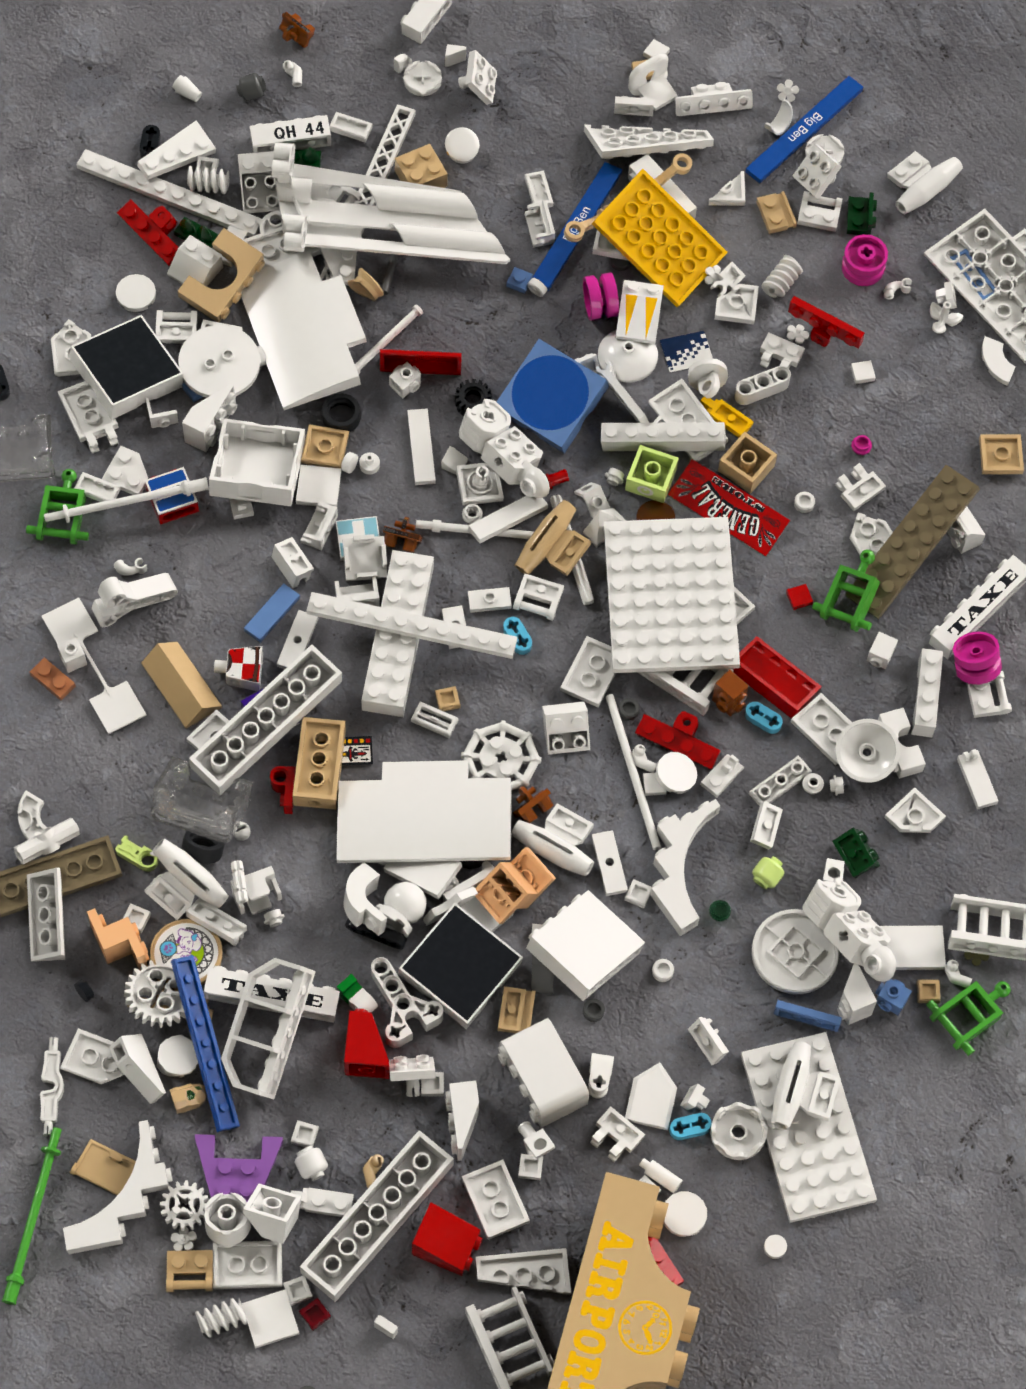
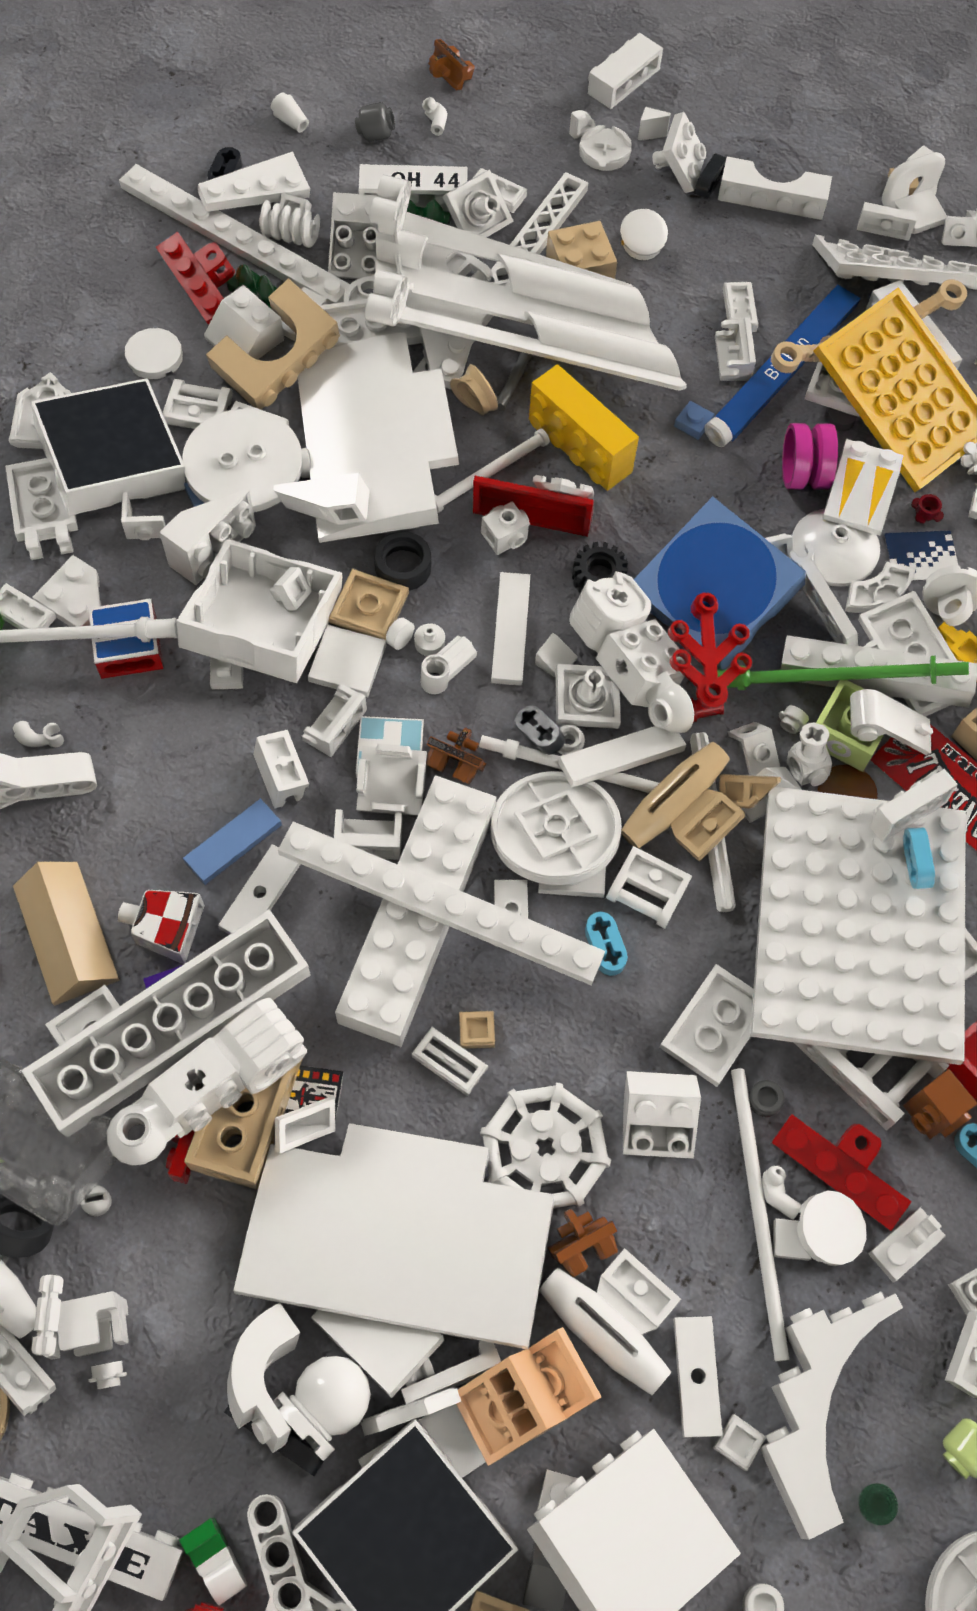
camera: 10 degrees right, 0 degrees up
(273, 445) = (291, 589): none -> white tile
(287, 380) = (332, 499): none -> white slope
(318, 726) = (247, 1052): none -> white brick
(341, 146) = (478, 206): none -> white plate
(356, 766) = (304, 1124): none -> white slope
(384, 477) = (447, 663): none -> white piece
(439, 347) = (563, 486): none -> white tile
(444, 301) = (582, 427): none -> yellow brick
(454, 507) = (536, 733): none -> beam
(473, 570) = (555, 830): none -> white plate
(503, 90) = (710, 176): none -> black beam
(552, 444) = (708, 654): none -> red plant
(572, 96) = (747, 187): none -> white arch
(577, 455) = (850, 673): none -> bright green bar
(590, 526) = (747, 790): none -> tan tile
(627, 499) = (809, 758): none -> white connector
(662, 379) = (879, 590): none -> white tile
(664, 465) = (878, 714): none -> white door
(686, 313) = (930, 503): none -> dark red plate
(692, 518) = (913, 804): none -> white piece
(699, 550) = (919, 858): none -> medium azure beam

